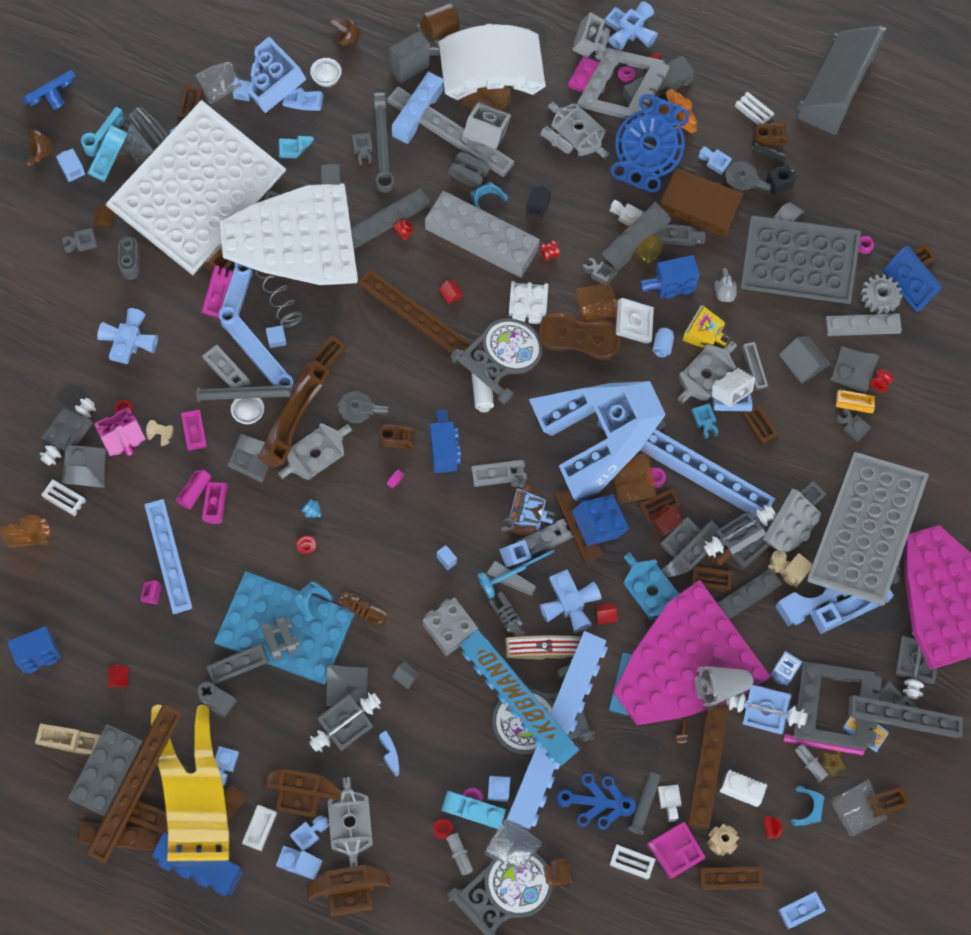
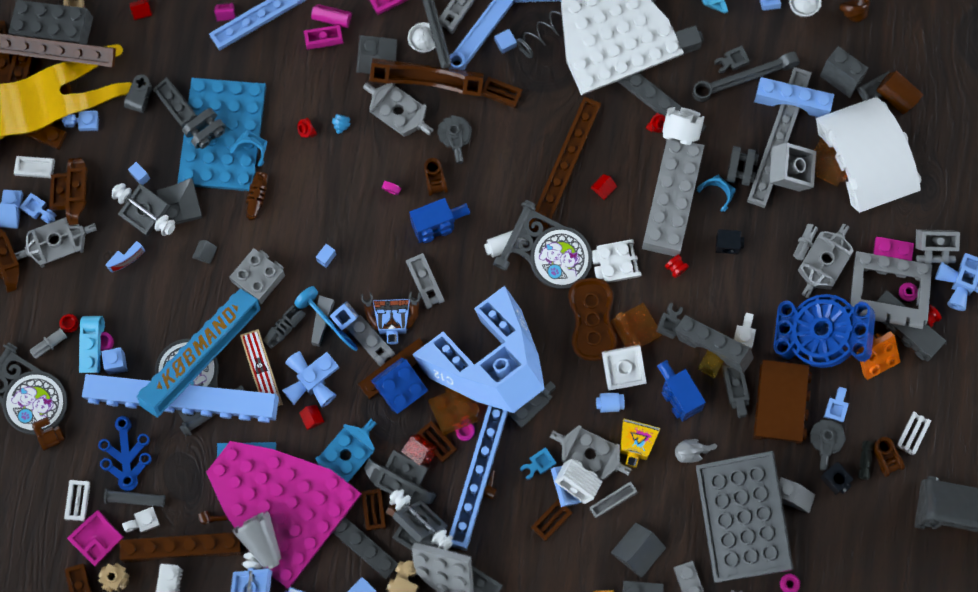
camera: 80 degrees right, 5 degrees up
(303, 719) = (138, 173): none -> light blue piece
(419, 201) = (683, 125): none -> white brick
(513, 845) = (64, 388): clear plate -> none

